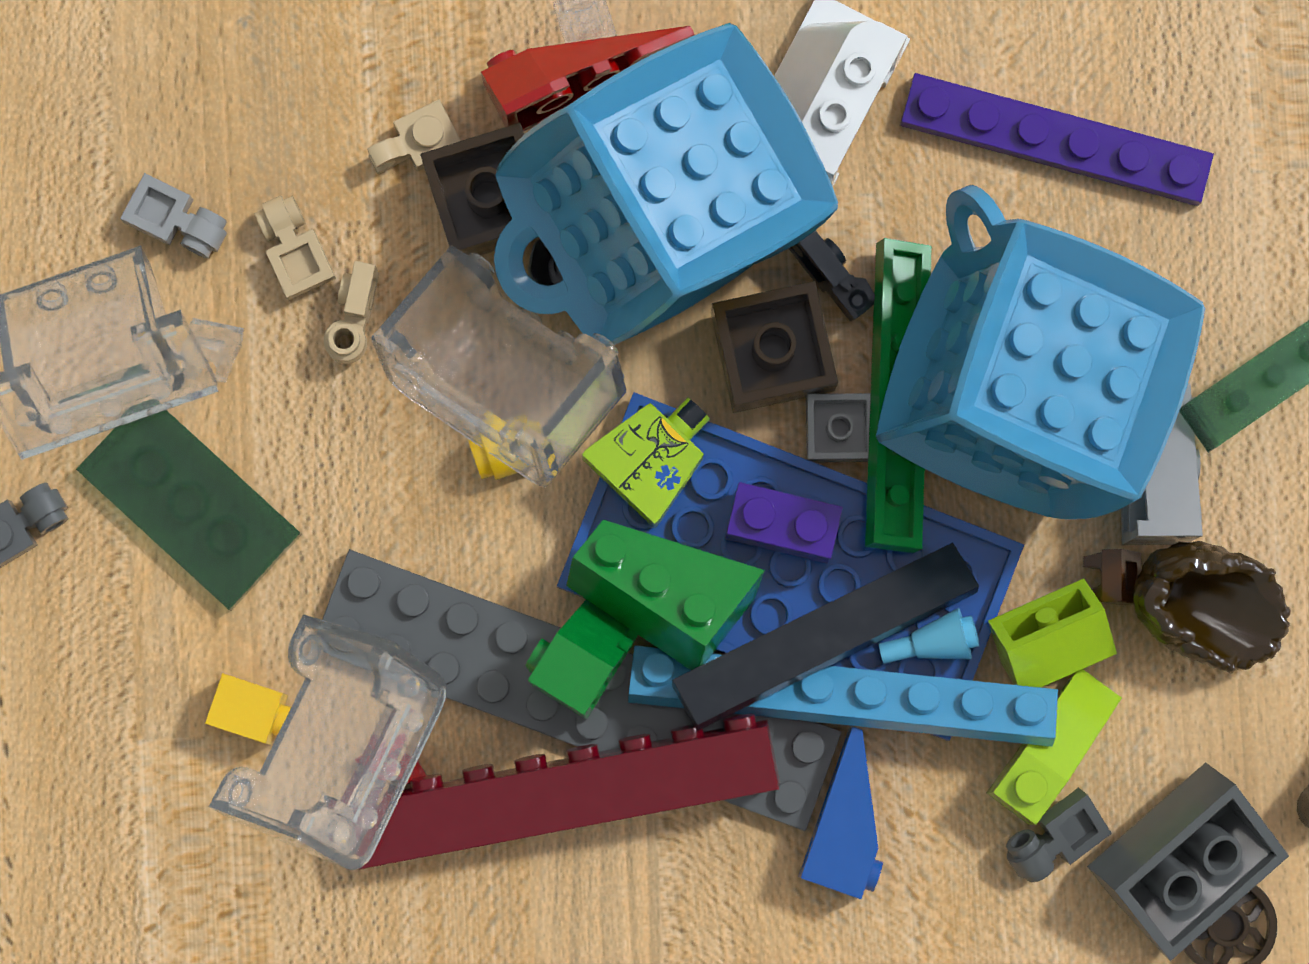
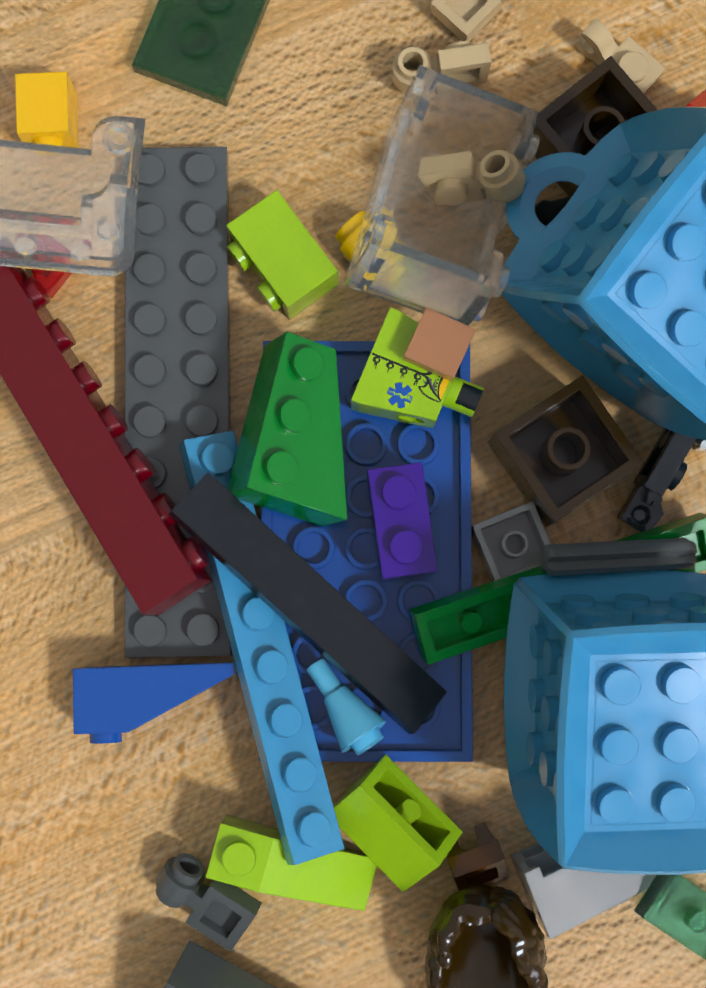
camera: 70 degrees right, 0 degrees up
(480, 537) = (281, 255): none -> lime brick
(482, 339) = (461, 179): none -> tan plate
(580, 659) = (188, 375): green wedge -> none
(637, 423) = (439, 344): none -> nougat tile
(890, 337) = (618, 556): none -> dark grey axle

